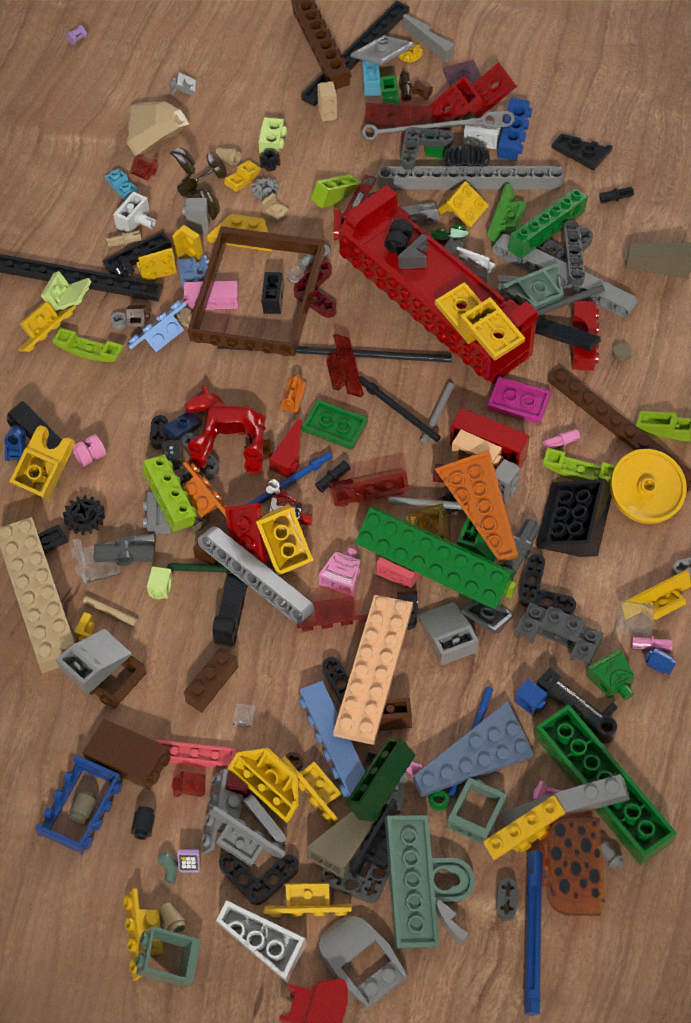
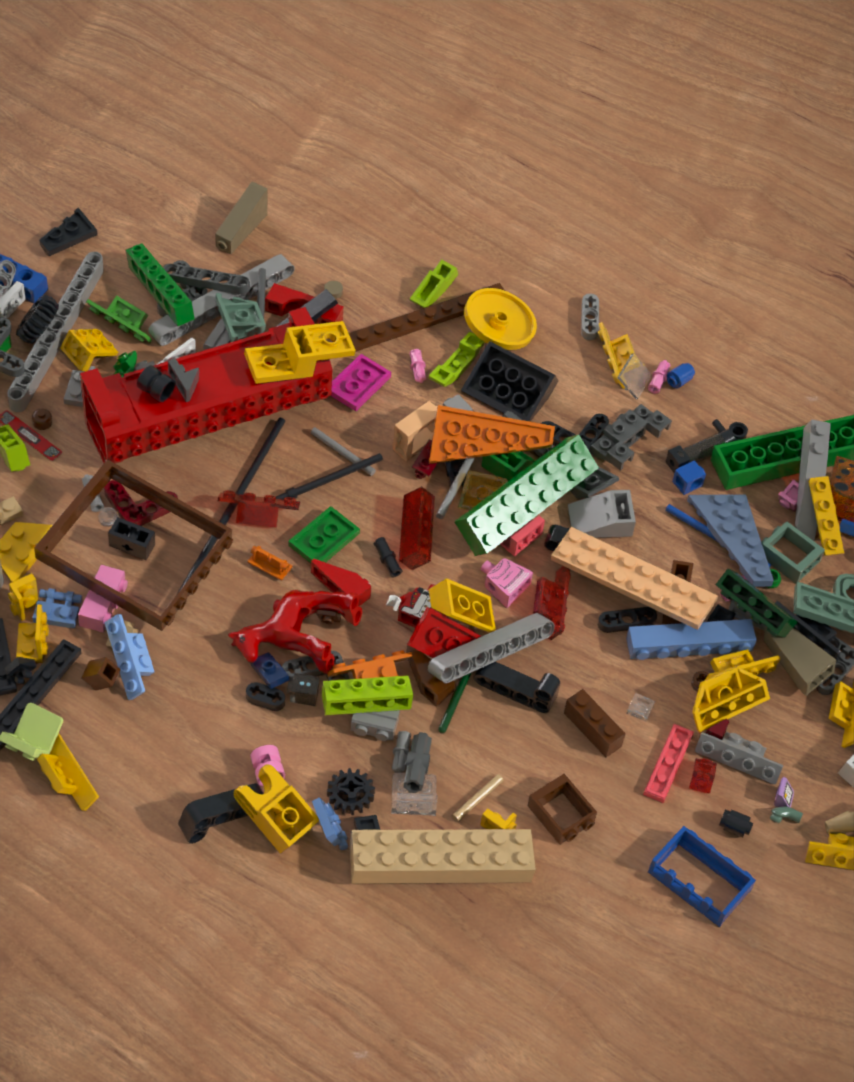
camera: 80 degrees left, 5 degrees down
(15, 447) = (232, 834): blue piece -> none
(42, 502) = (330, 823): none -> medium blue plate
(82, 807) = (704, 873): dark tan brick -> none
(87, 348) = (120, 735): lime slope -> none
(92, 660) = (553, 813): light grey slope -> none
(121, 323) = (90, 704): light grey bush -> none
(127, 754) = (658, 817): reddish brown brick -> none
(159, 583) = (463, 741): yellowish green brick -> none
(241, 840) = (779, 739): light grey bracket -> none
(256, 884) = (819, 742): black beam -> none
(264, 820) = (759, 719): light grey beam -> none
(314, 464) = (366, 570): blue bar -> none
(338, 219) = (59, 458): red plate -> none
(513, 442) = (382, 421): red brick -> none
(612, 675) = (684, 412): green torso -> none
(615, 195) = (139, 228): black axle -> none

